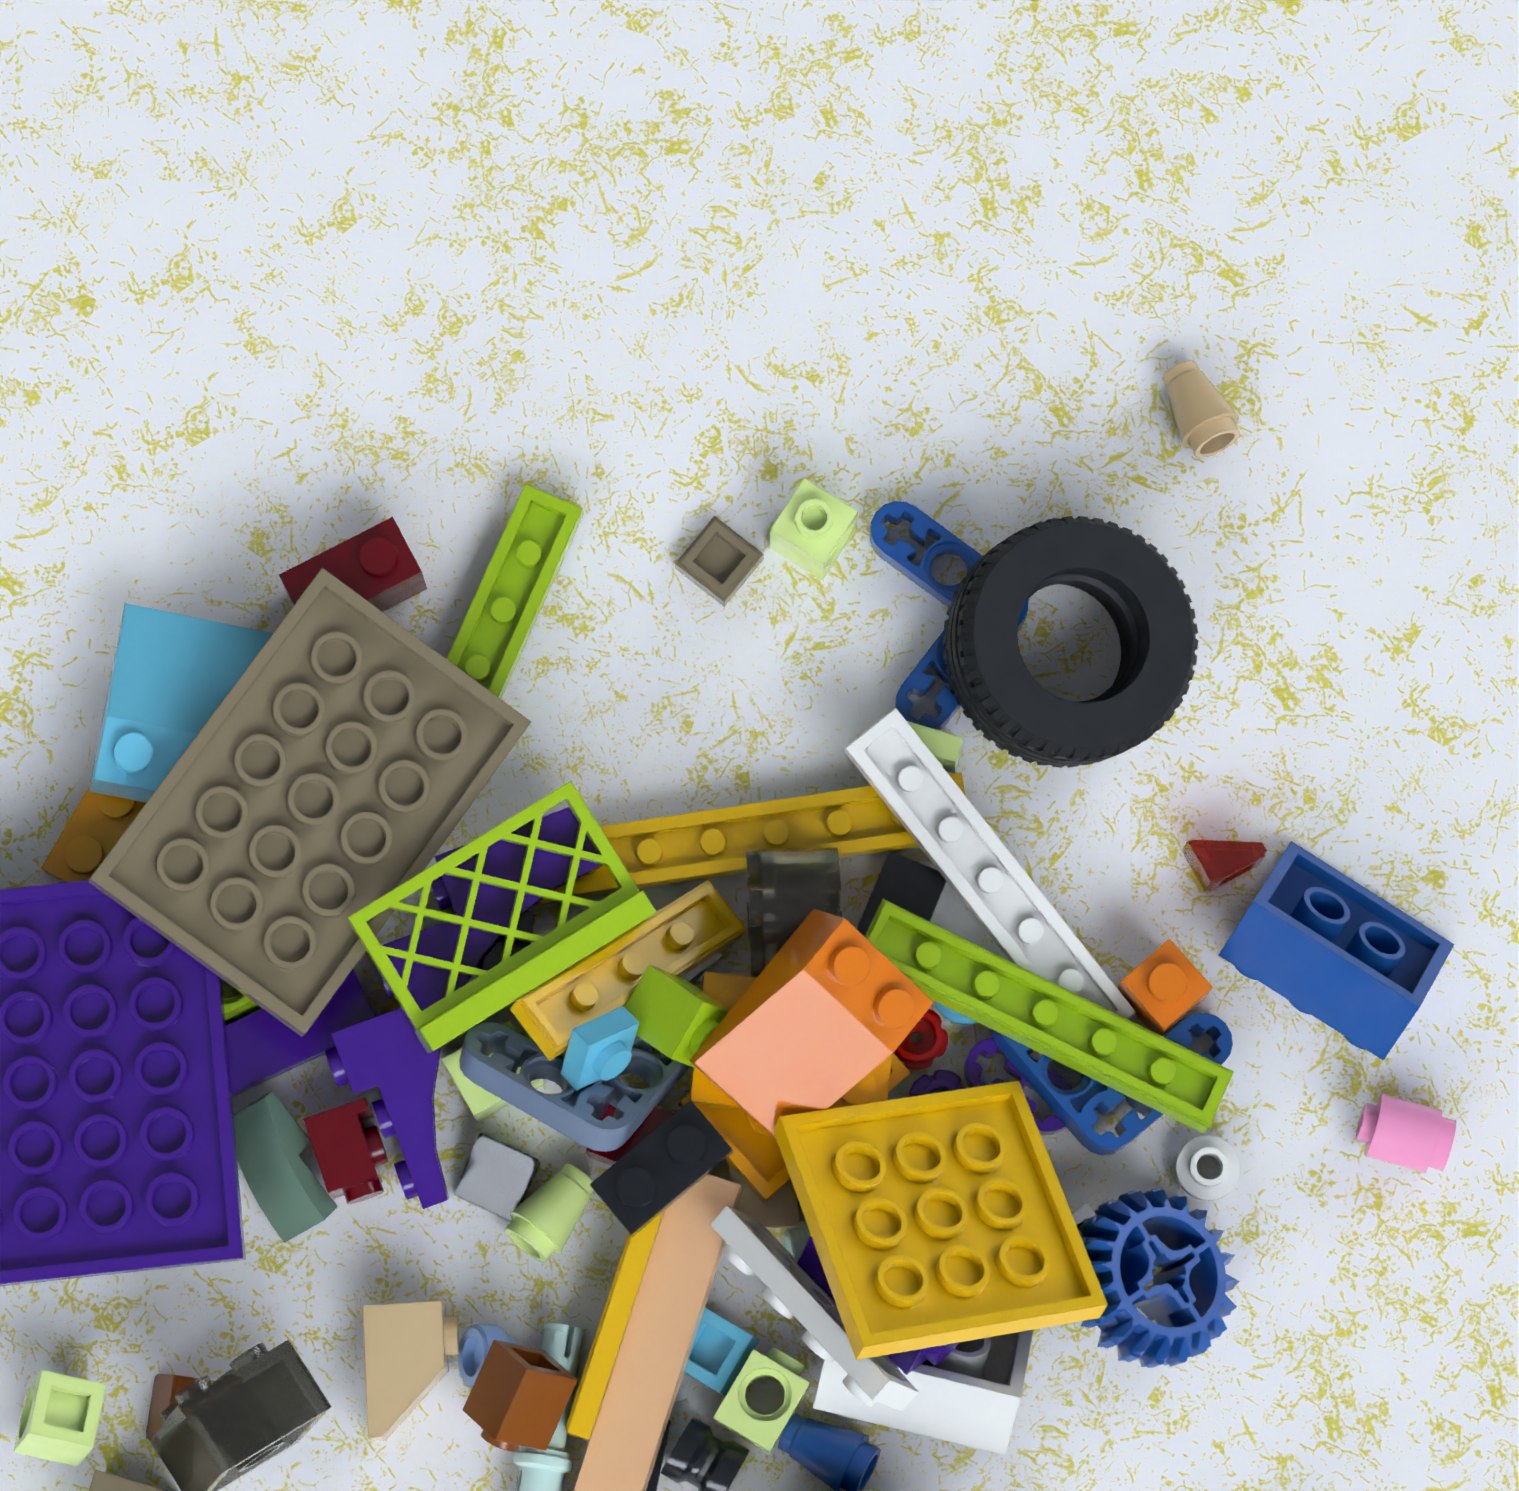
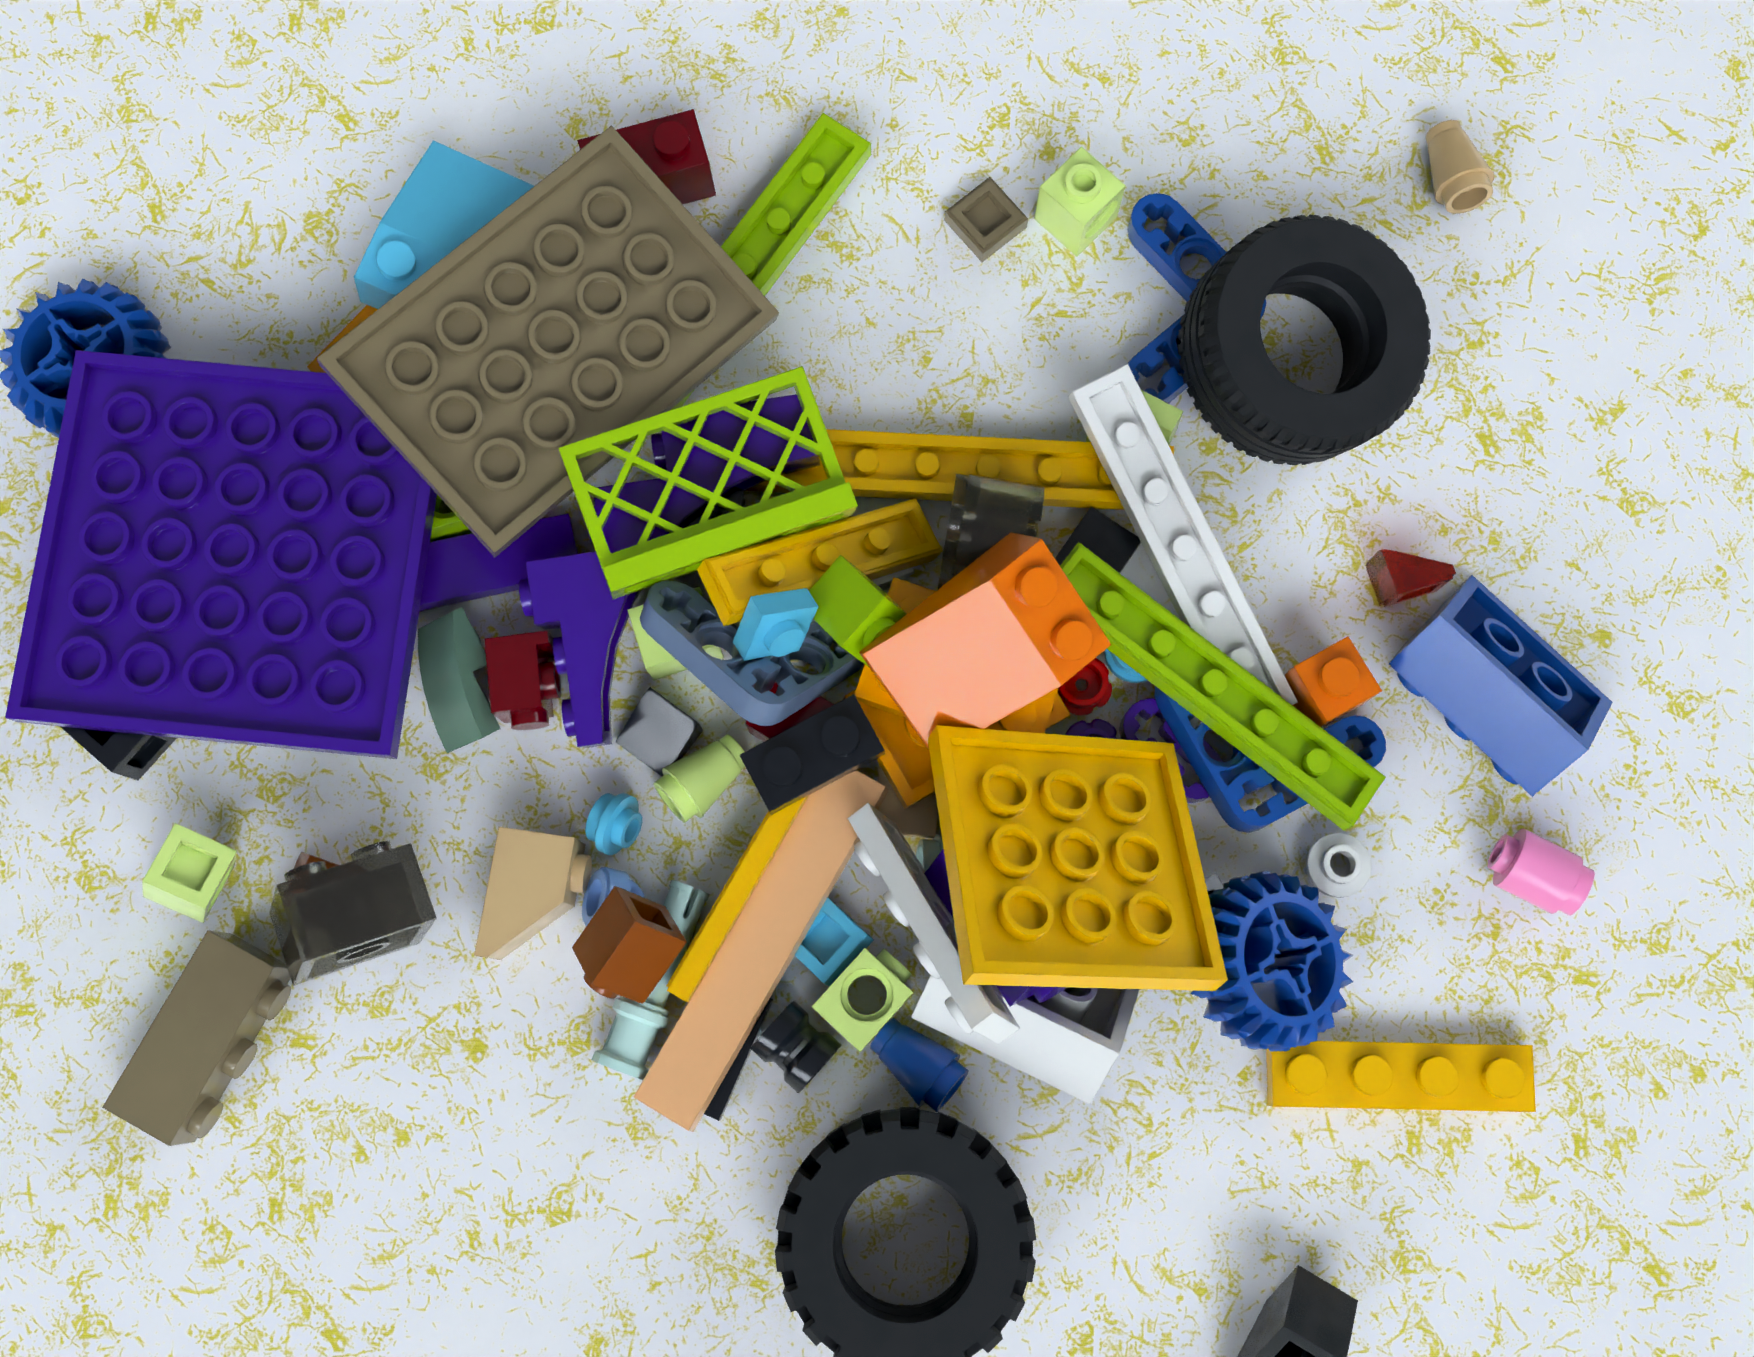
camera: 15 degrees right, 0 degrees up
(473, 1277) = (614, 822): none -> medium azure plate
(1307, 1364) = (1403, 1076): none -> yellow plate

